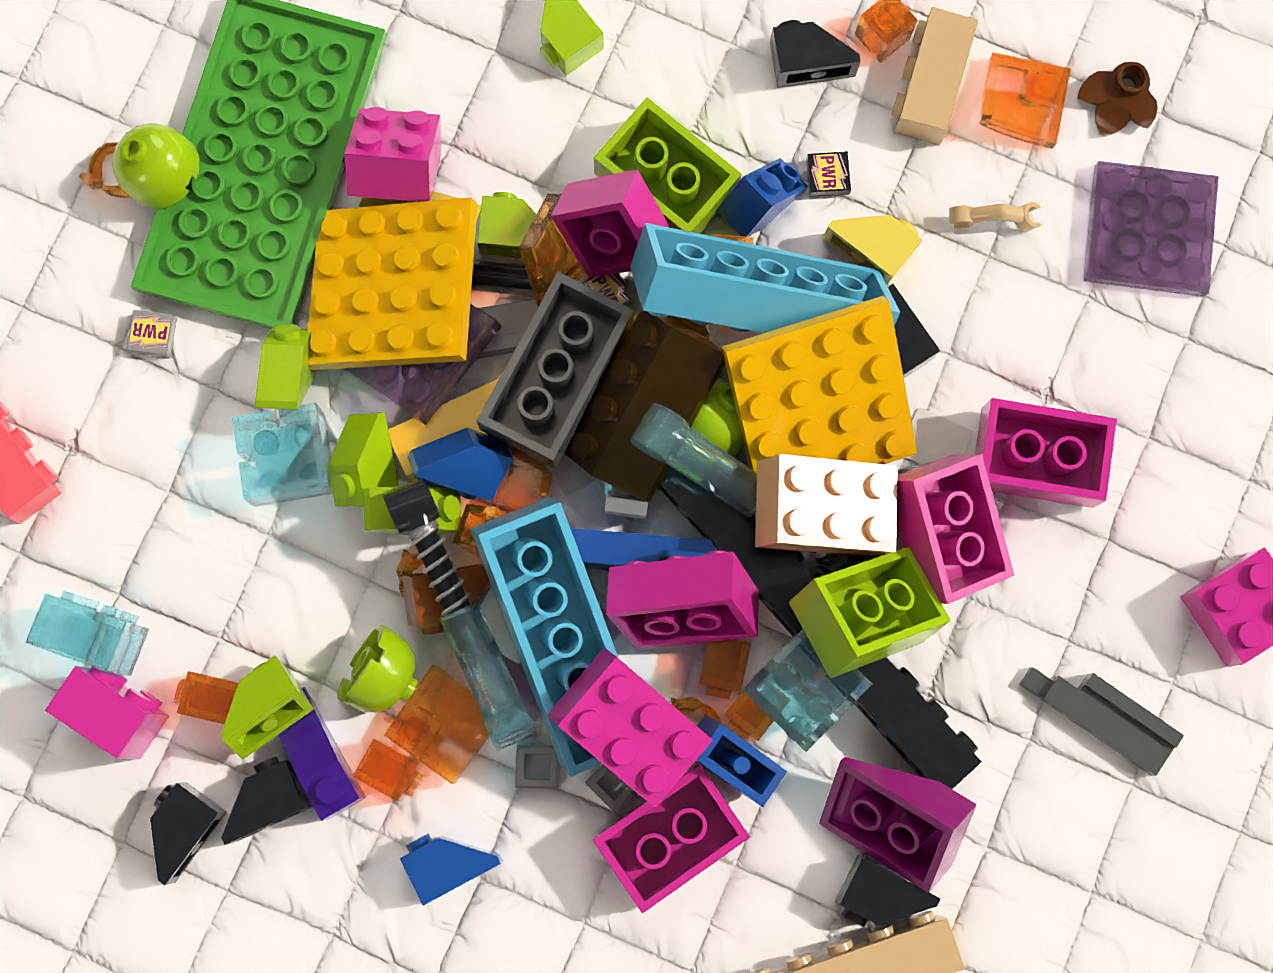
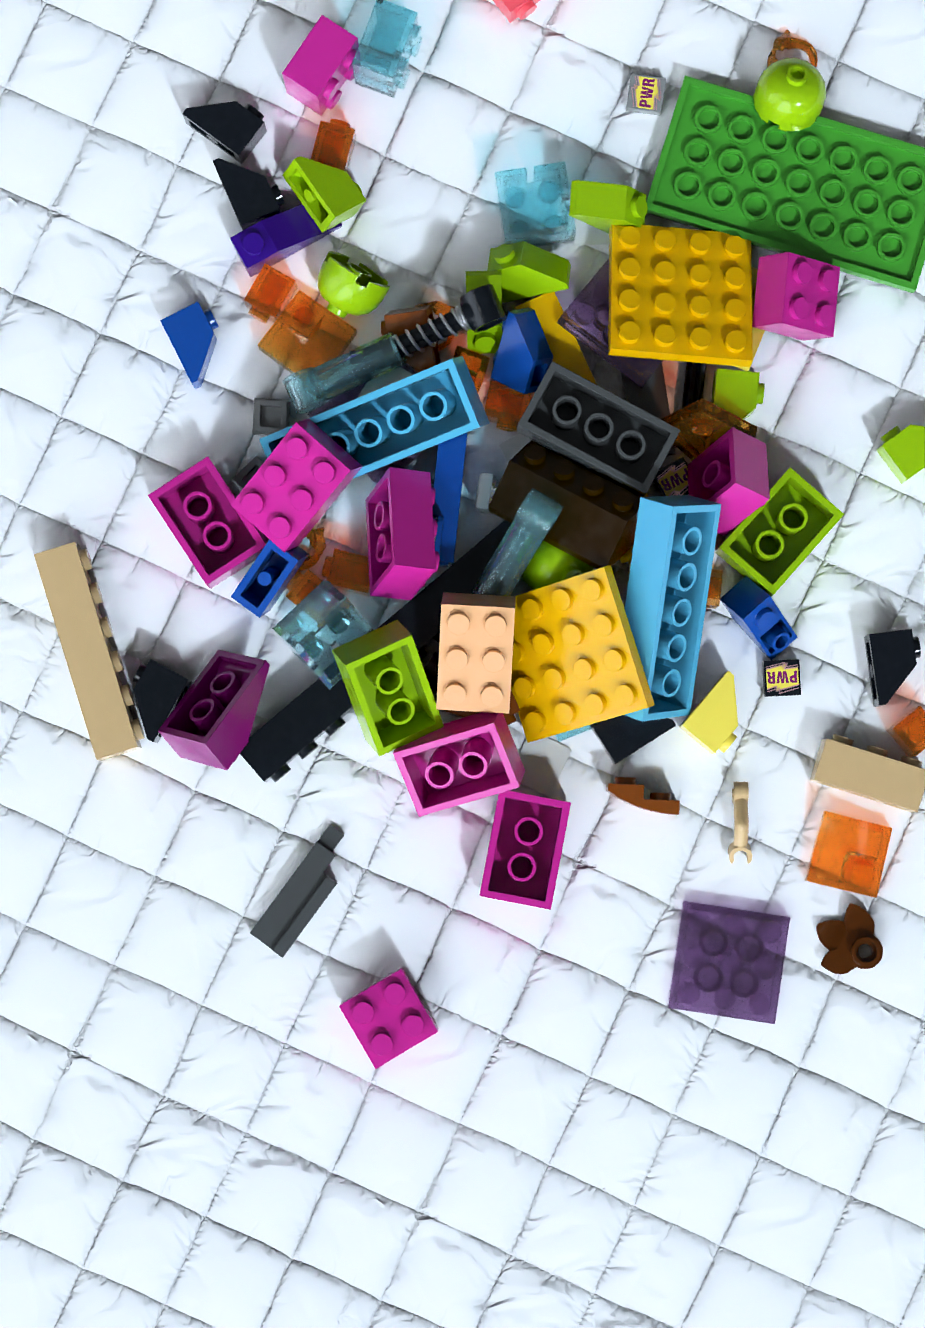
camera: 95 degrees right, 5 degrees up
(971, 331) = (633, 794): none -> dark orange slope

